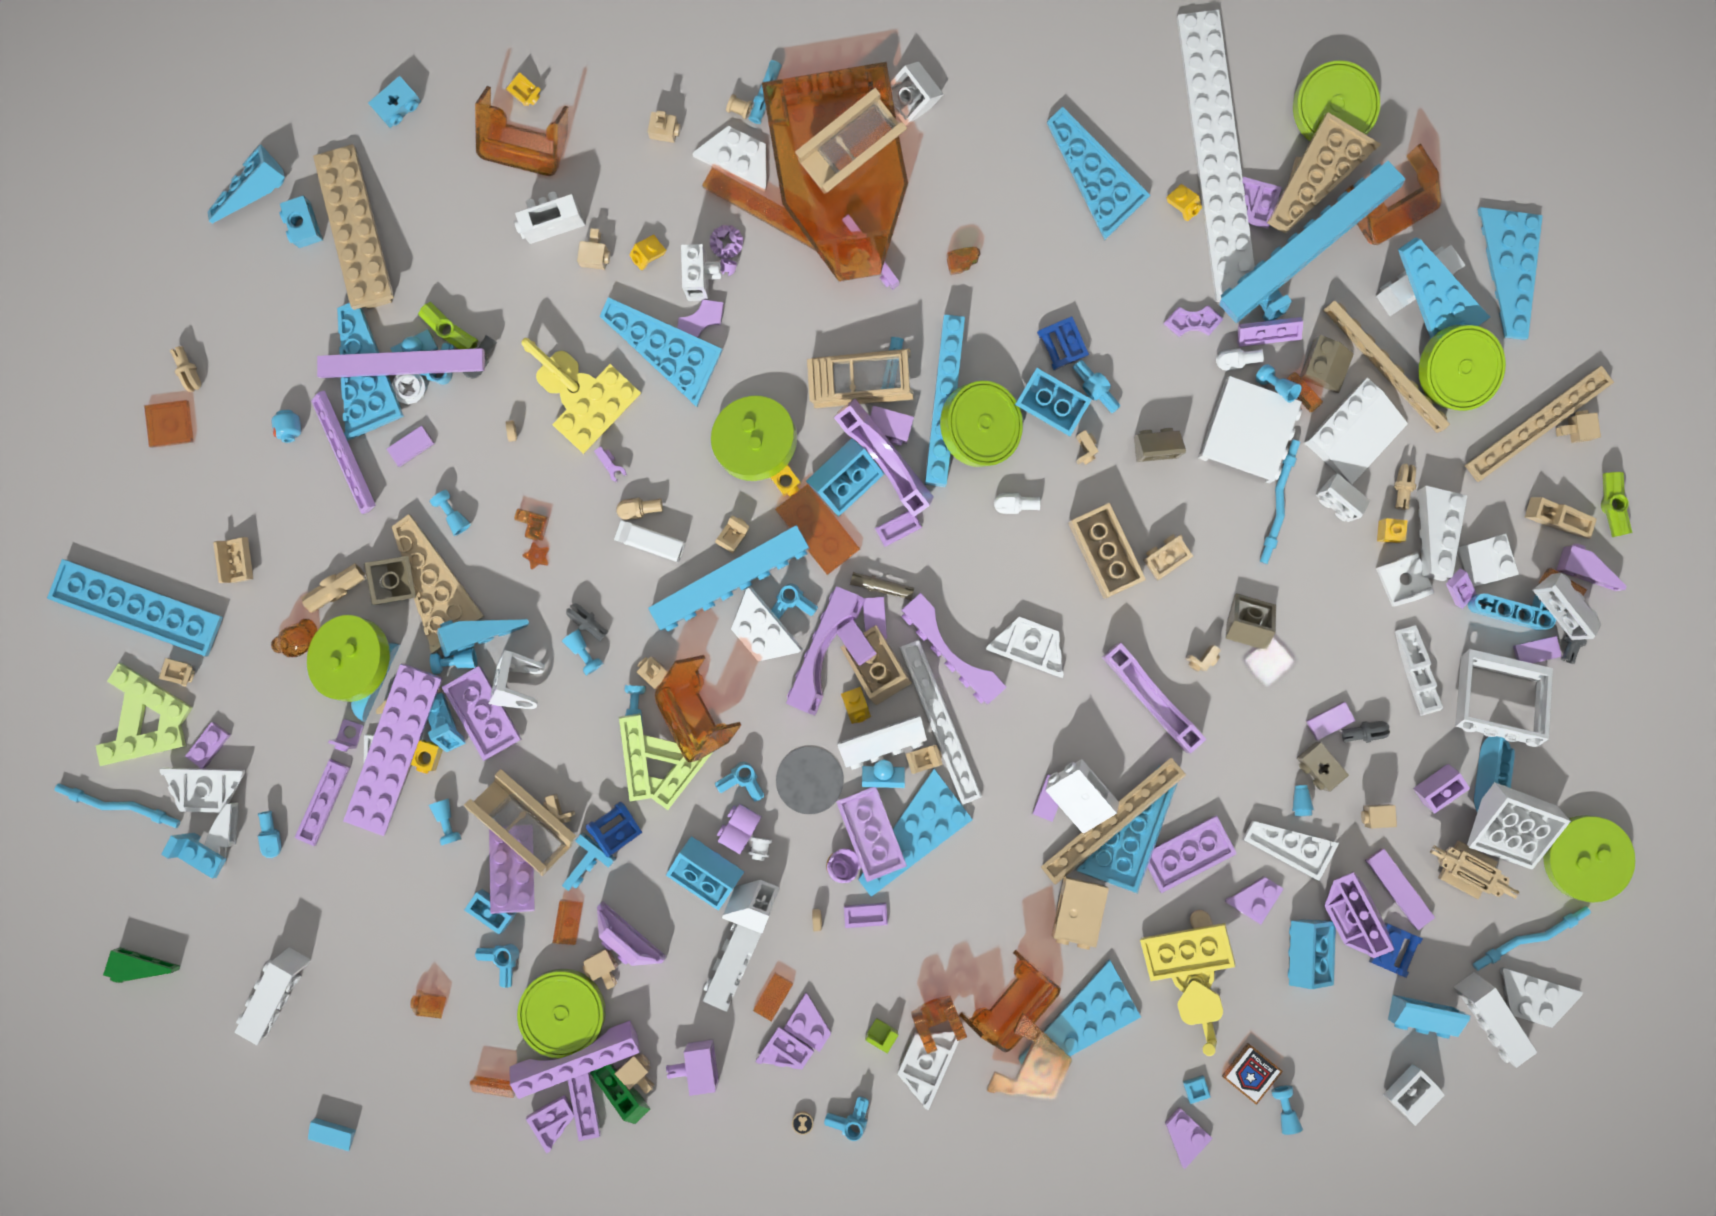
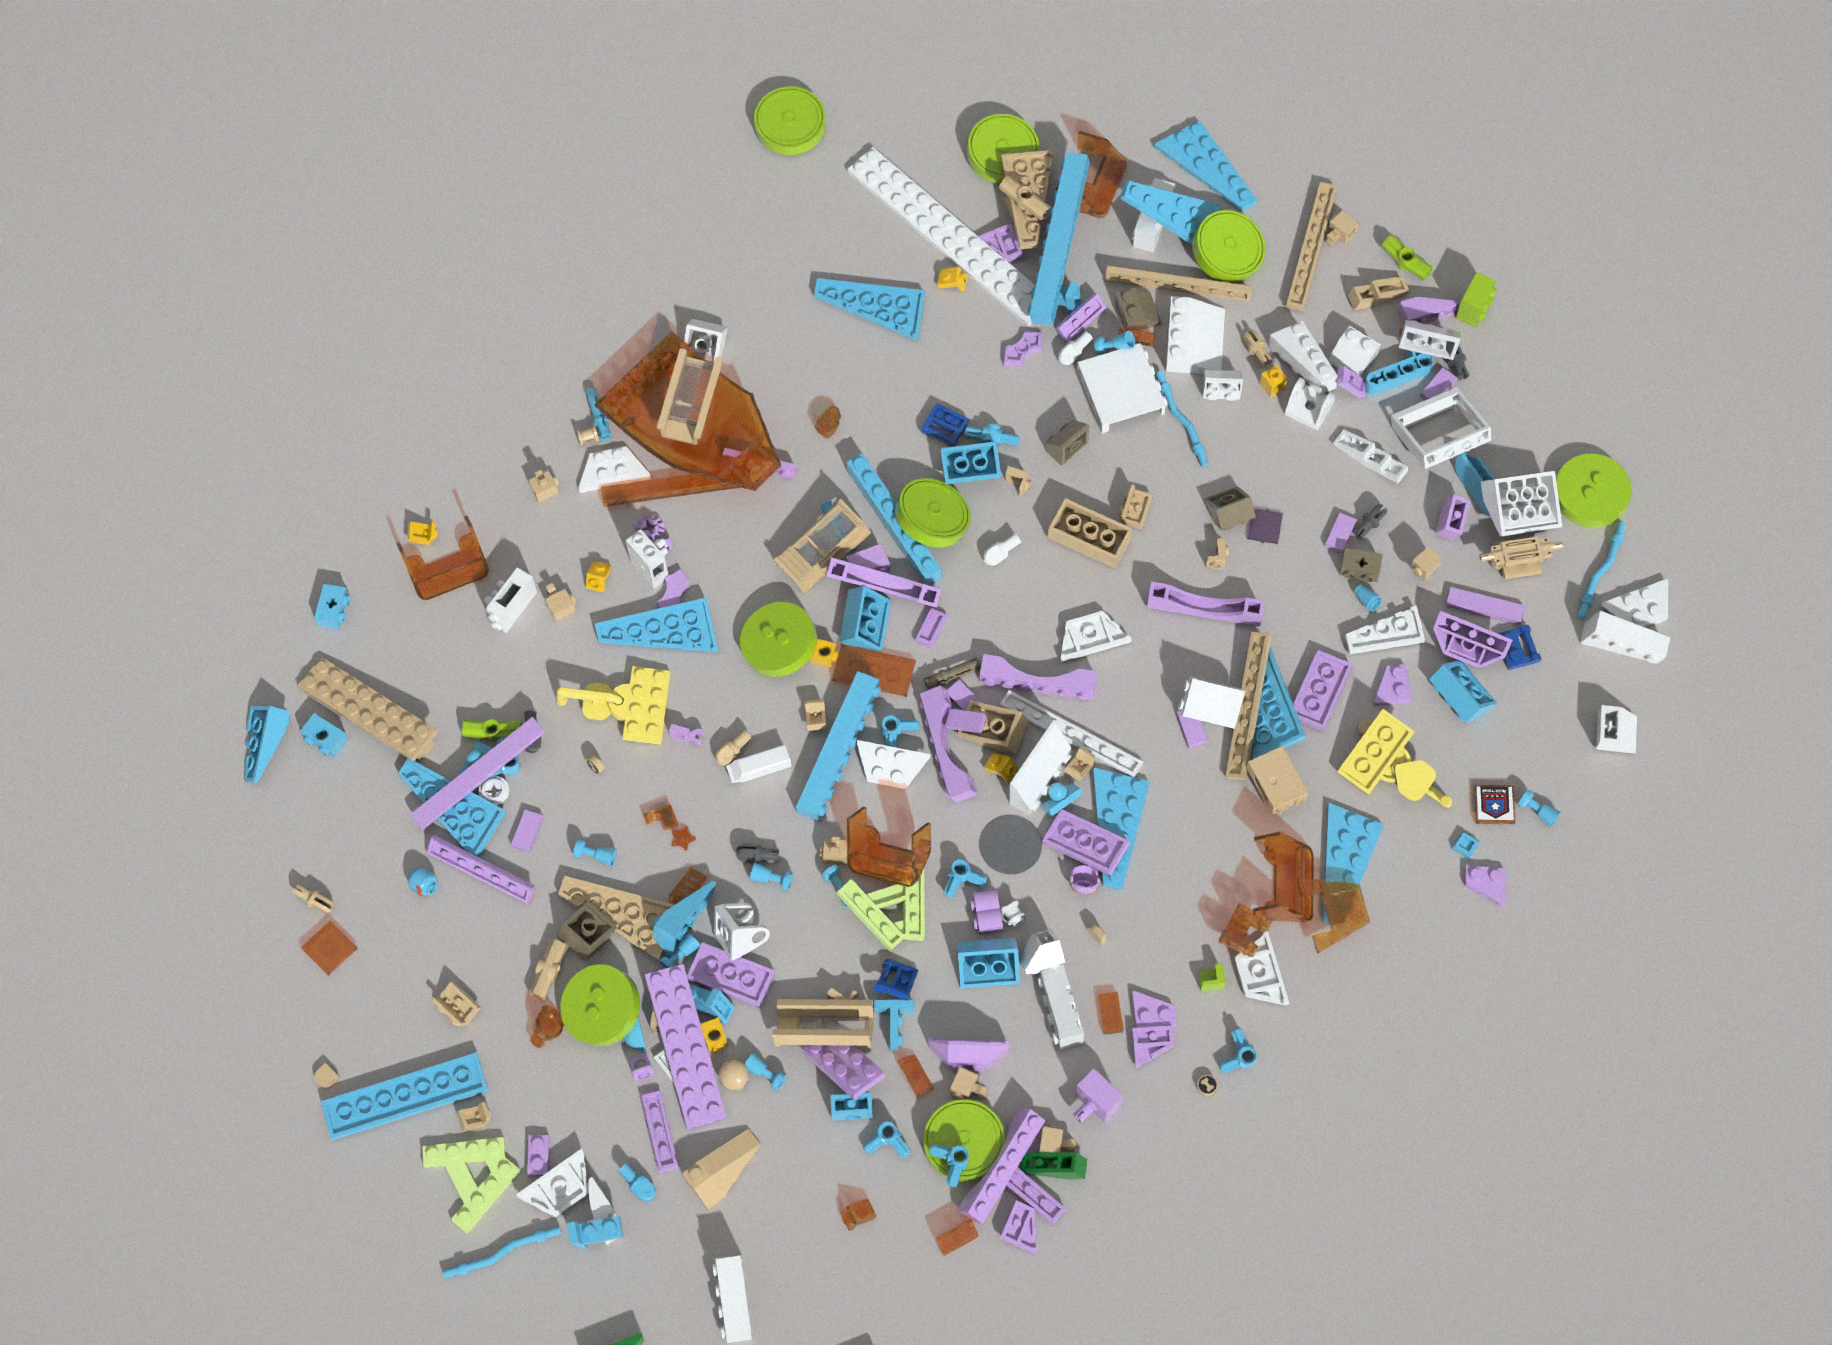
camera: 35 degrees left, 20 degrees down
(85, 537) = (325, 1076): none -> tan tile
(340, 877) = (717, 1171): none -> tan wedge
(414, 805) = (733, 1074): none -> tan hair
(503, 598) = (677, 895): none -> clear orange slope
(531, 1037) = (955, 1166): none -> medium azure axle
(865, 915) = (1129, 905): lavender tile -> none
(1310, 163) = (1029, 202): none -> tan piece
(1427, 1017) = (1576, 670): medium azure slope -> none
(1644, 598) = (1477, 300): none -> lime brick

